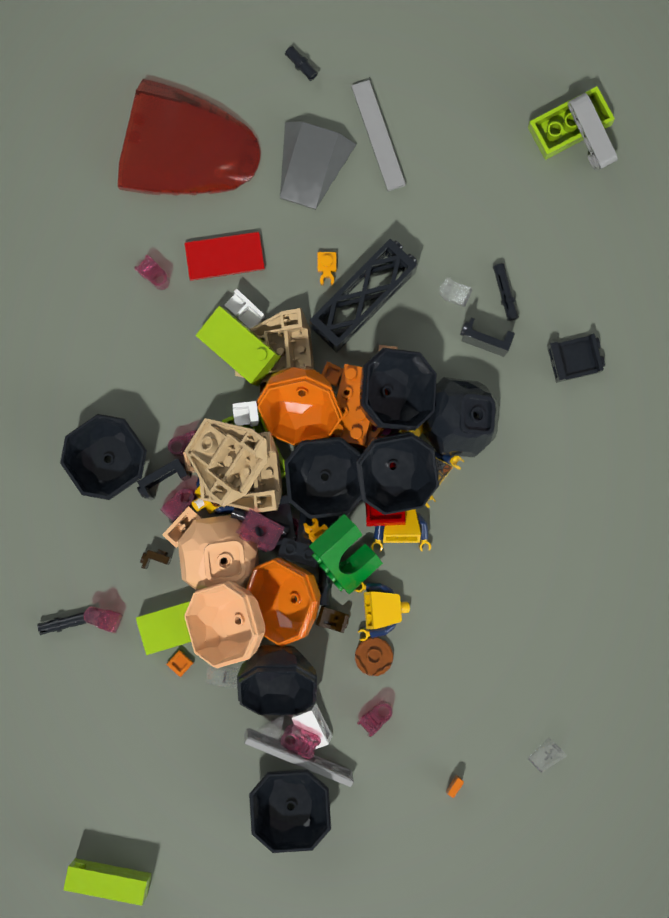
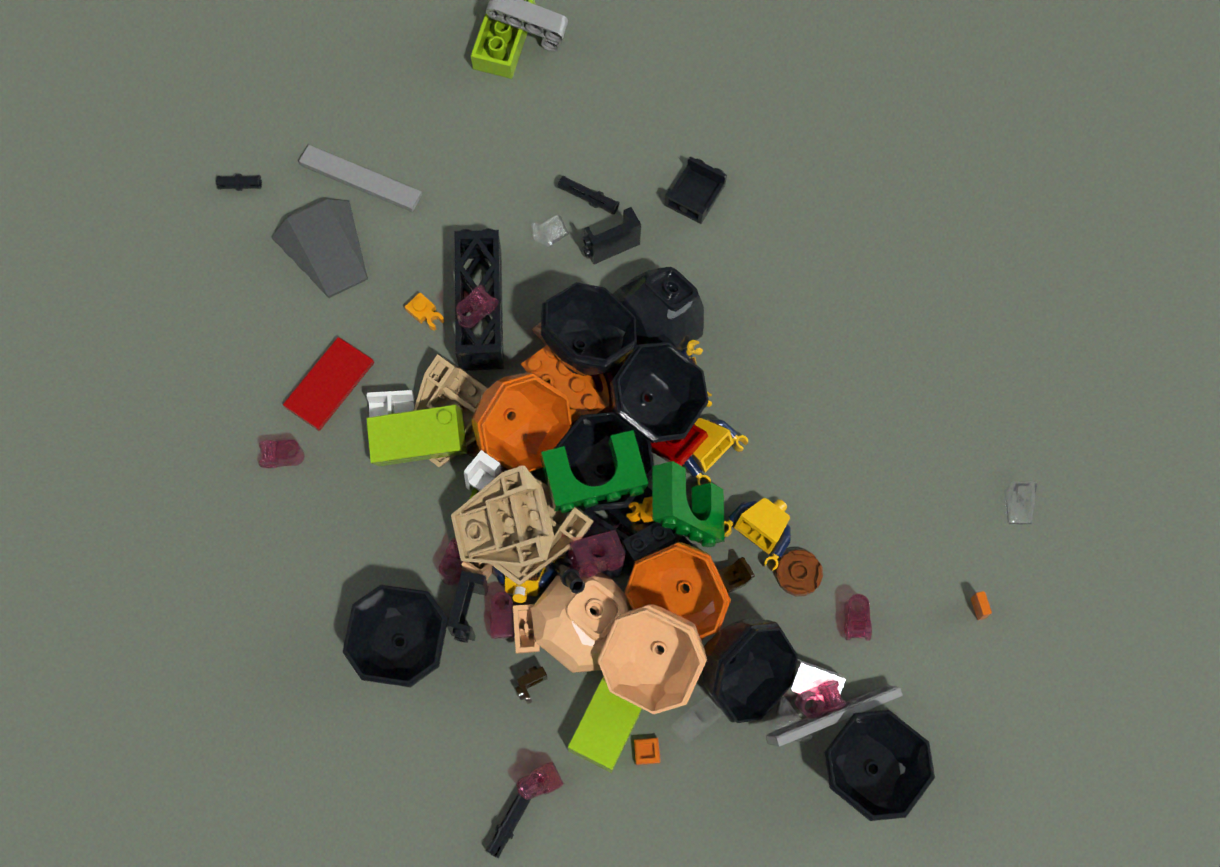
camera: 45 degrees left, 15 degrees down
(184, 145) = (203, 331): clear red windscreen -> none
(230, 528) = (570, 577): none -> black pin
(324, 504) = (568, 492): none -> green arch
(351, 303) = (477, 303): none -> clear pink piece

